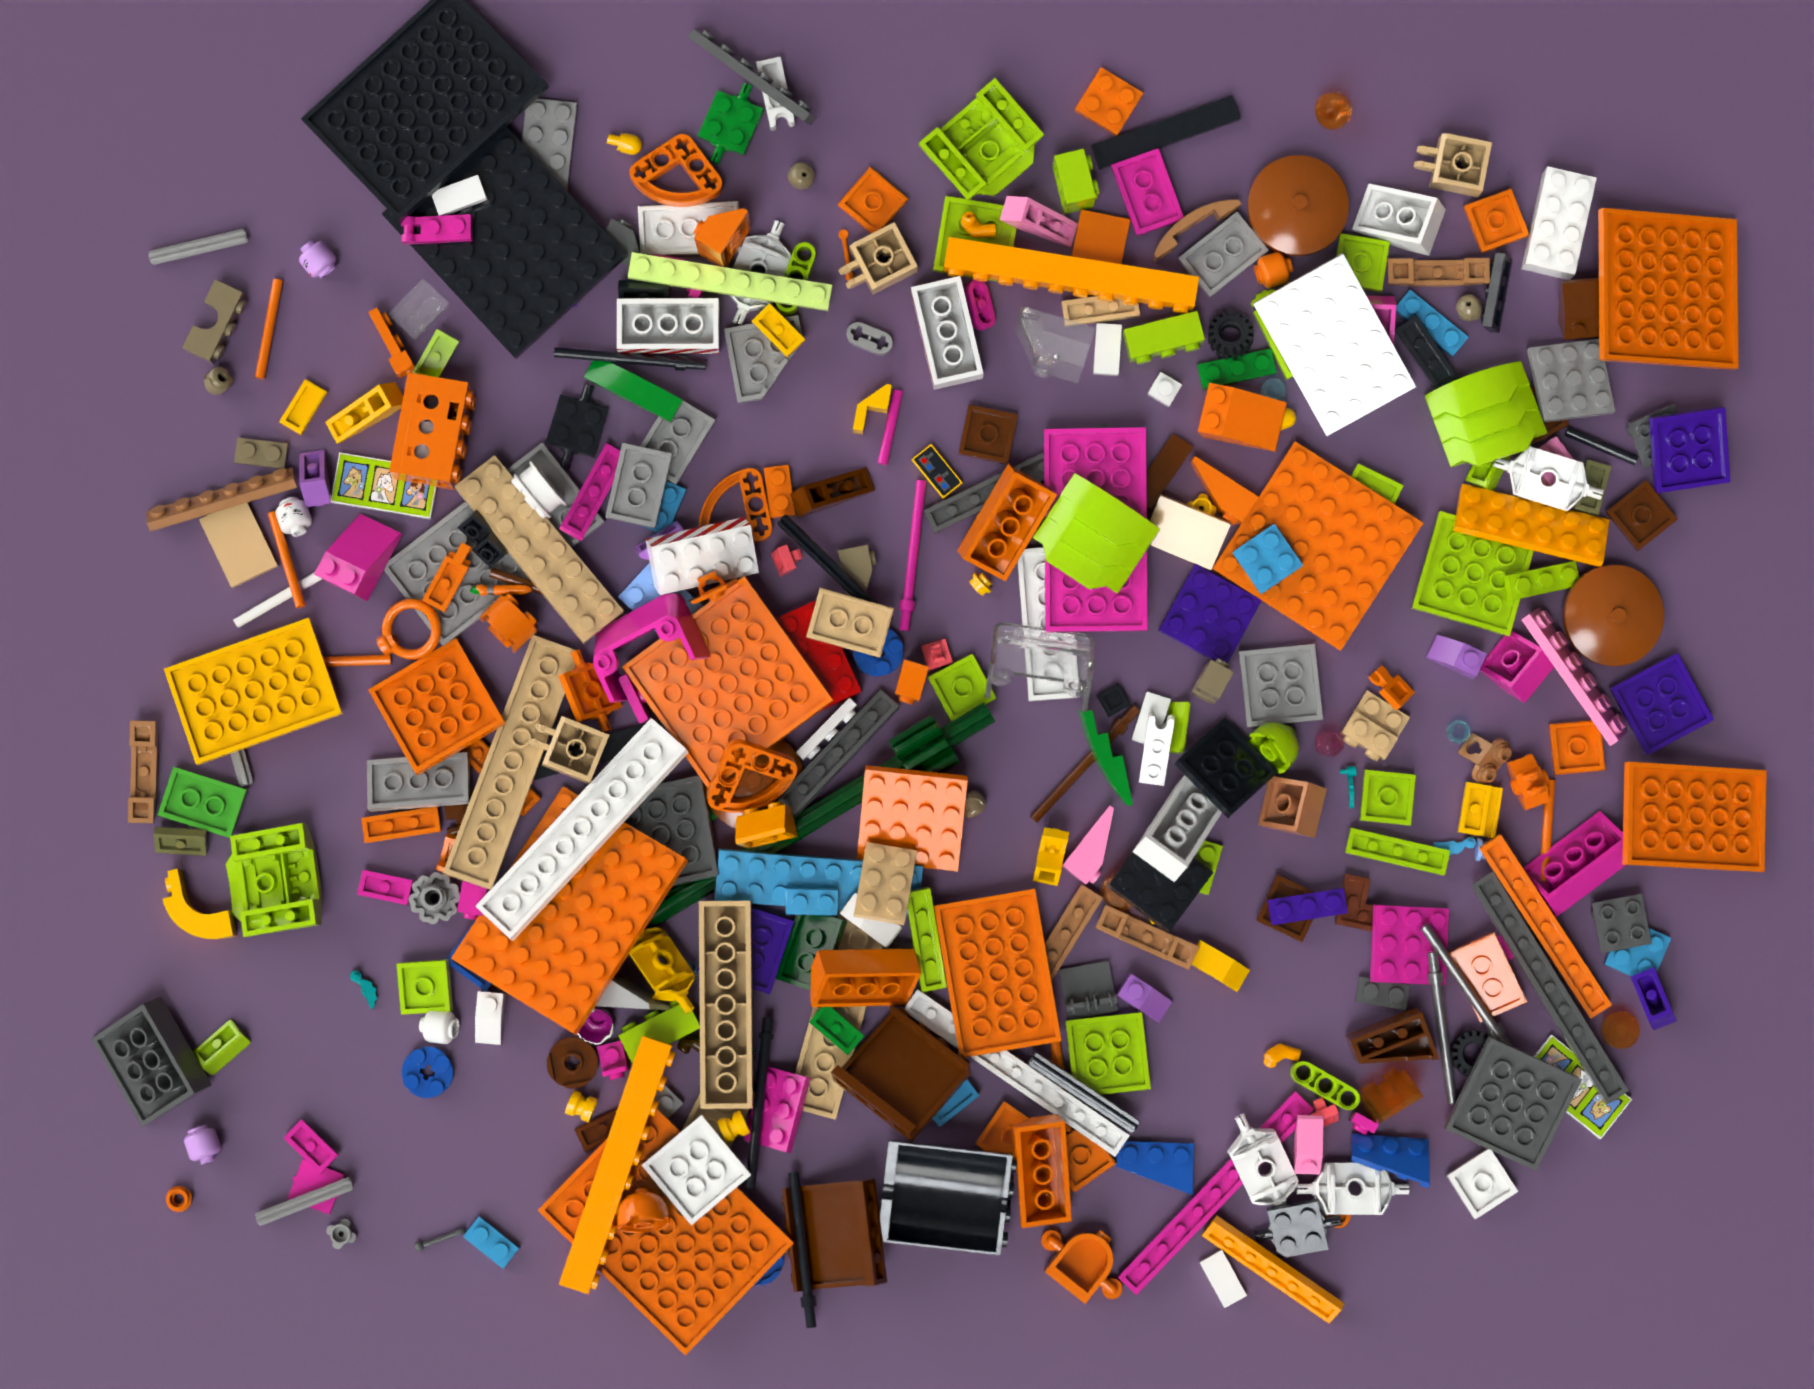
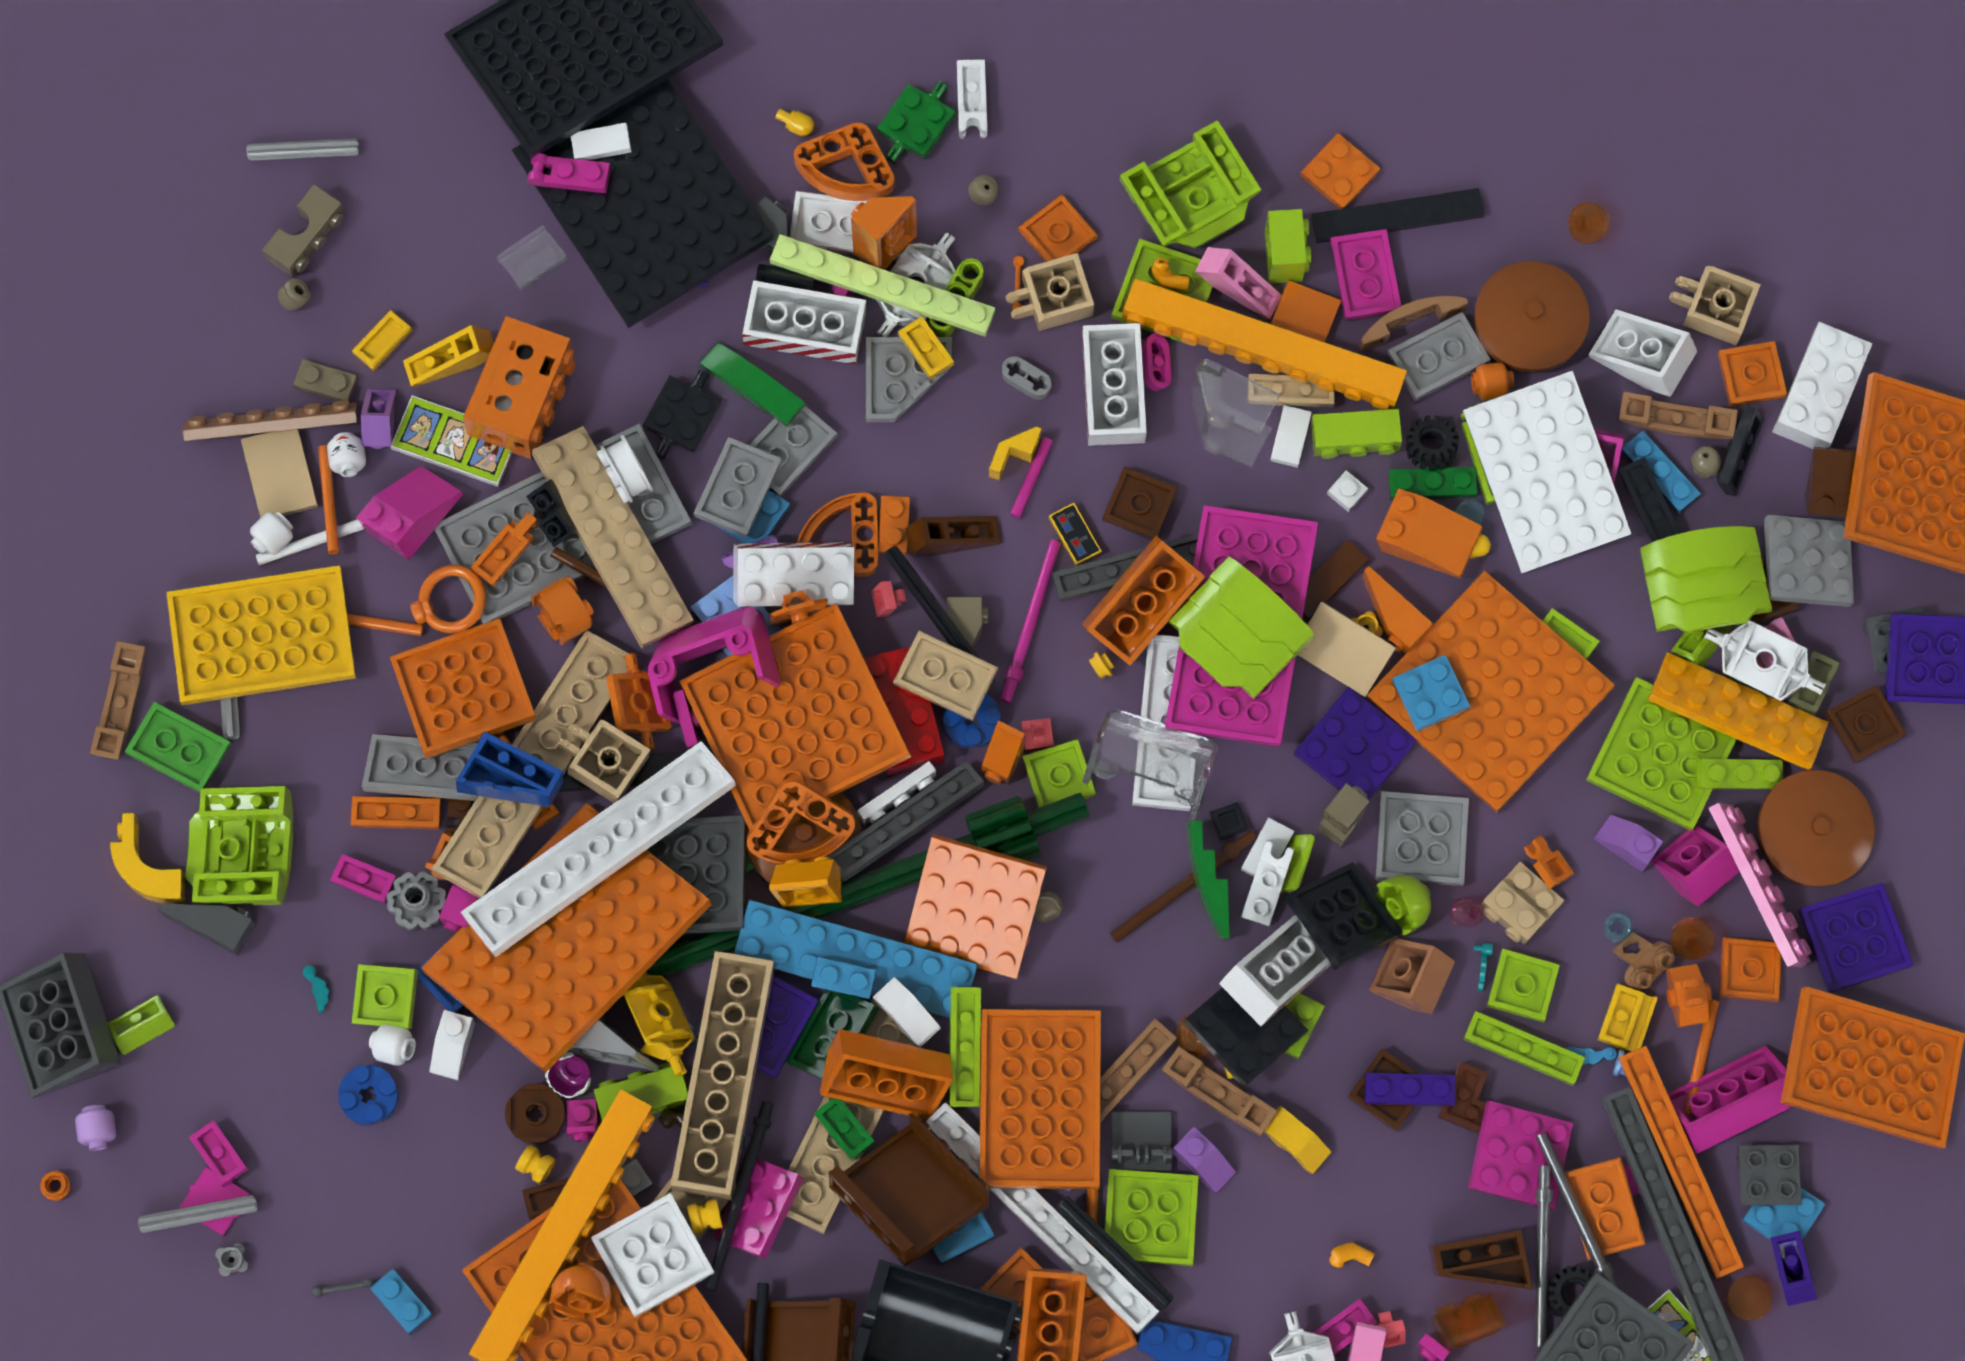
camera: 15 degrees right, 10 degrees down
(180, 841) = (144, 785): olive plate -> none
(243, 599) = (271, 533): none -> white head
(268, 329) = (361, 250): orange bar -> none
(269, 950) = (213, 922): none -> dark grey slope
(317, 259) = (431, 184): lavender head -> none
(400, 359) = (498, 306): orange plate -> none
(436, 354) = (543, 306): lime plate -> none
(483, 590) = (559, 572): orange piece -> none
(492, 779) = (508, 774): none -> blue wedge
(550, 135) = (715, 99): light grey plate -> none
(592, 493) = (682, 487): dark pink plate -> none
(680, 363) = (809, 366): black bar -> none
(761, 81) = (959, 79): dark grey plate -> none
(885, 883) = (930, 971): tan plate -> none
(1050, 856) = (1125, 979): yellow brick -> none
(1090, 852) = (1168, 987): bright pink slope -> none
(1336, 1090) = (1387, 1284): lime beam -> none
(1366, 258) = (1600, 389): lime plate -> none
(1382, 994) = (1480, 1207): dark grey plate -> none
(1524, 731) = (1692, 938): none -> clear orange plate
(1601, 446) = (1832, 640): black bar -> none

